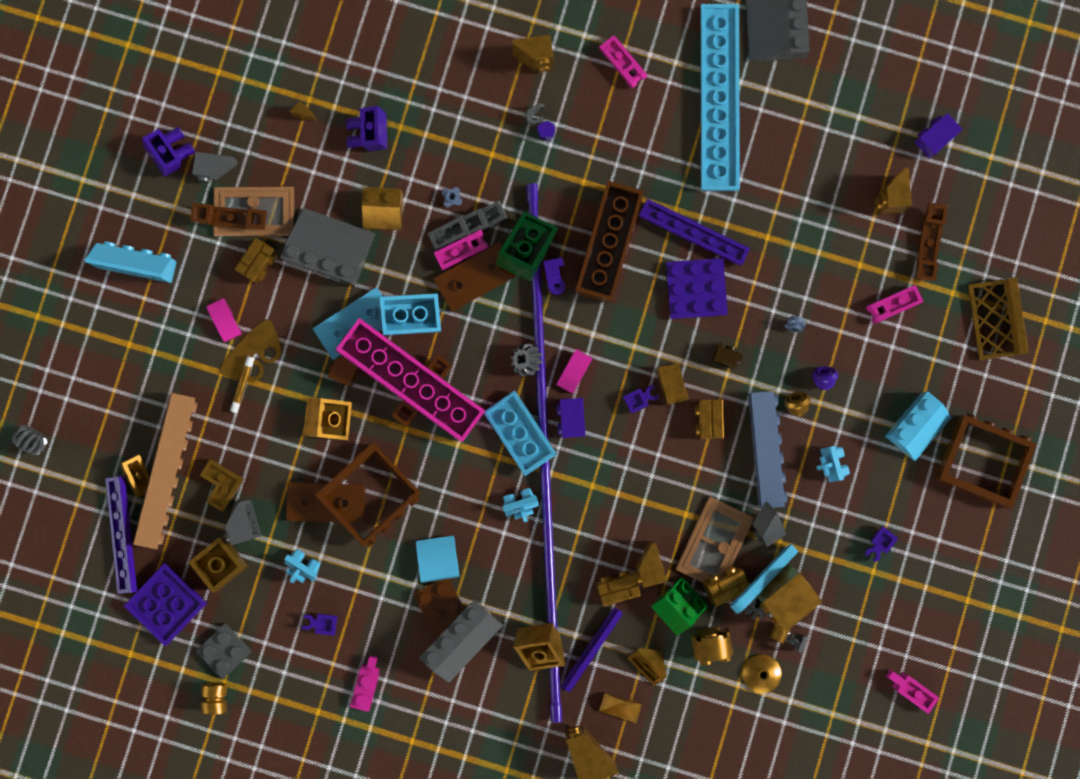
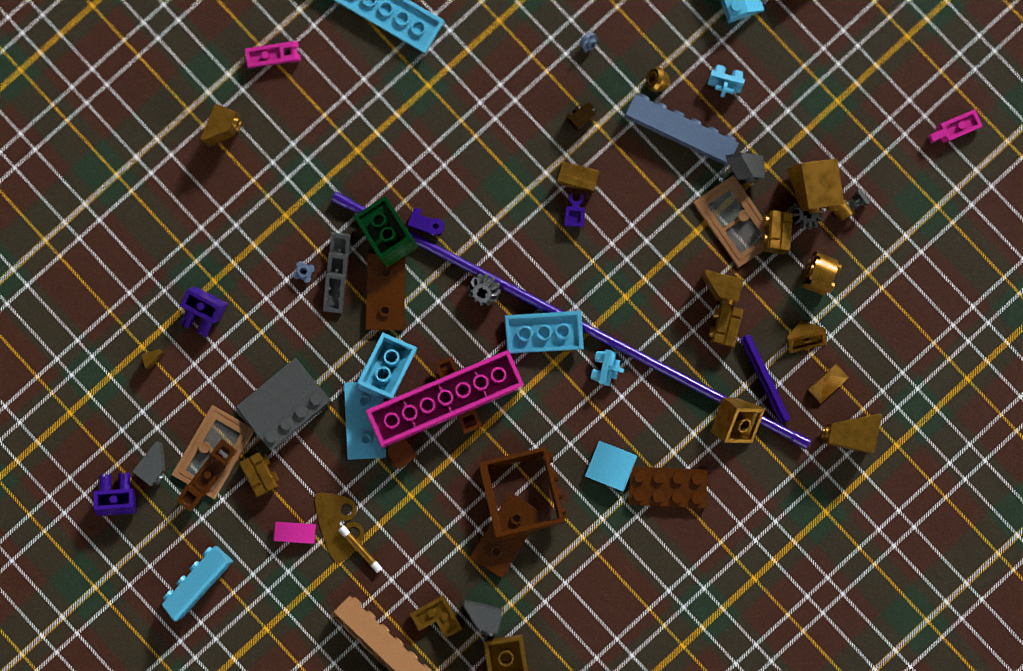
camera: 55 degrees left, 0 degrees up
(294, 562) = (552, 590): medium azure hips -> none
(324, 624) = (610, 596): dark purple plate -> none
(327, 418) = (434, 491): pearl gold slope -> none
(366, 685) = (683, 590): dark pink hinge -> none
(382, 208) = (278, 338): pearl gold slope -> none
(461, 250) = (355, 291): dark pink plate -> none
(461, 641) = (693, 485): dark grey slope -> none
(545, 129) = (292, 156): leg -> none
(572, 418) = (557, 280): dark purple brick -> none
(574, 371) = (518, 254): dark pink slope -> none
(609, 242) = (424, 158): reddish brown brick -> none
(679, 606) = (771, 282): green slope -> none
(694, 232) = (458, 81): dark purple plate -> none
(696, 288) = (508, 108): dark purple plate -> none
(710, 419) = (627, 162): pearl gold brick -> none
(752, 671) = (862, 253): pearl gold dish -> none
(764, 578) = (789, 196): medium azure beam -> none
(824, 377) = (648, 44): dark purple cone -> none
(882, 541) = (816, 79): dark purple plate -> none

